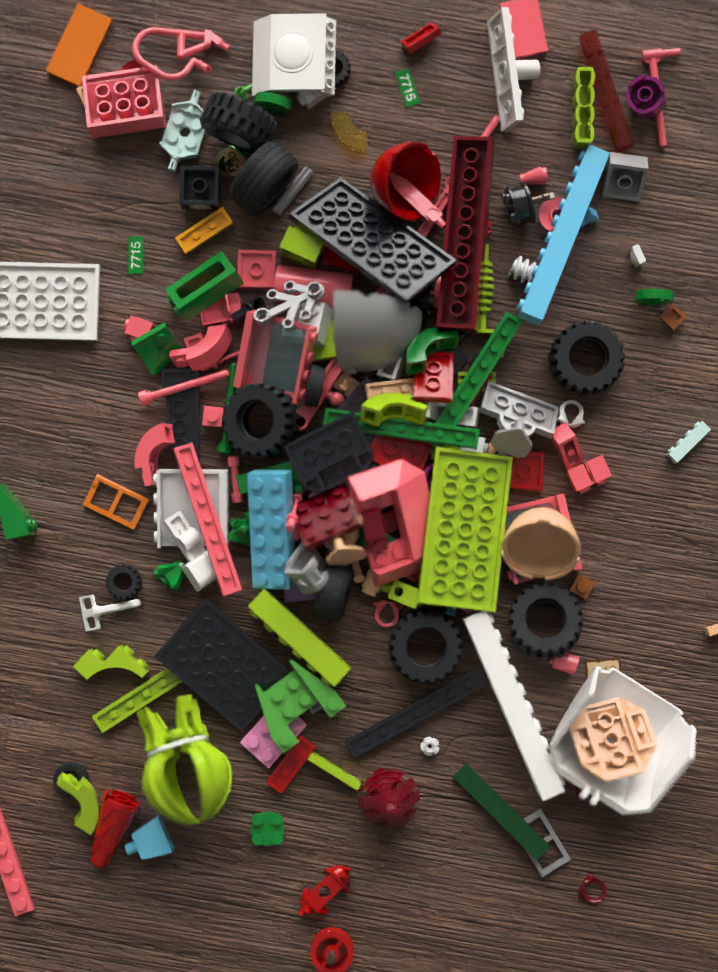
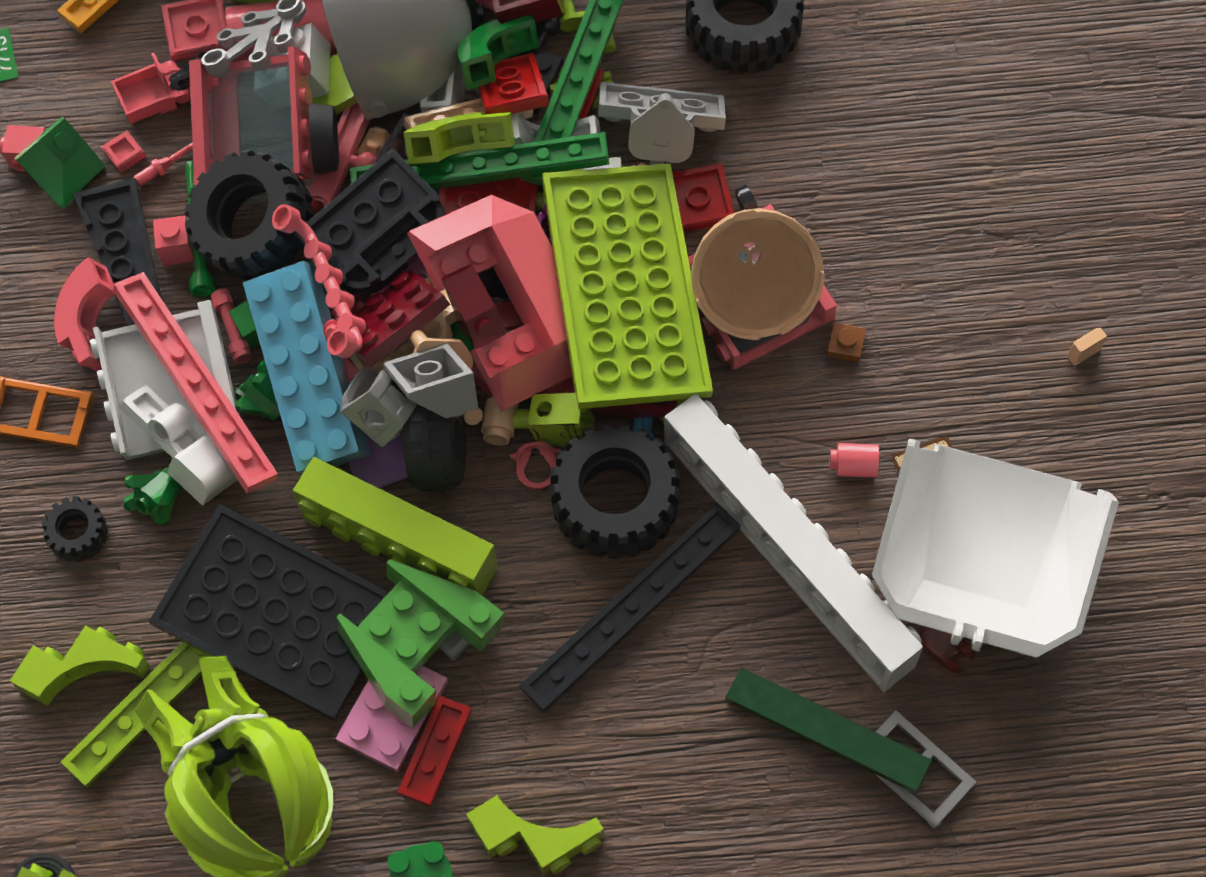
camera: 10 degrees left, 20 degrees down
(96, 611) = (38, 582): white piece -> none
(147, 397) = (58, 235): coral piece -> none
(205, 352) = (137, 149): coral arch -> none
(206, 294) = (116, 58): green piece -> none
(294, 541) = (349, 331): none -> coral bar
(334, 770) = (514, 740): lime tile -> none
(338, 834) = (549, 847): none -> lime arch
(340, 573) = (436, 380): none -> light grey slope
(389, 798) = (623, 756): dark red plant -> none
(429, 741) = (671, 666): white plate -> none
(545, 596) = (796, 362): black tyre -> none
(551, 482) = (745, 198): none -> black tile
(563, 418) = (737, 111): white piece -> none
(567, 446) = (754, 143): coral slope -> none
(582, 894) = (1018, 839): dark red piece -> none
(597, 471) = (795, 180): coral piece -> none
(623, 723) = (978, 541): light nougat piece -> none
(688, 442) = (944, 91): light aqua piece -> none

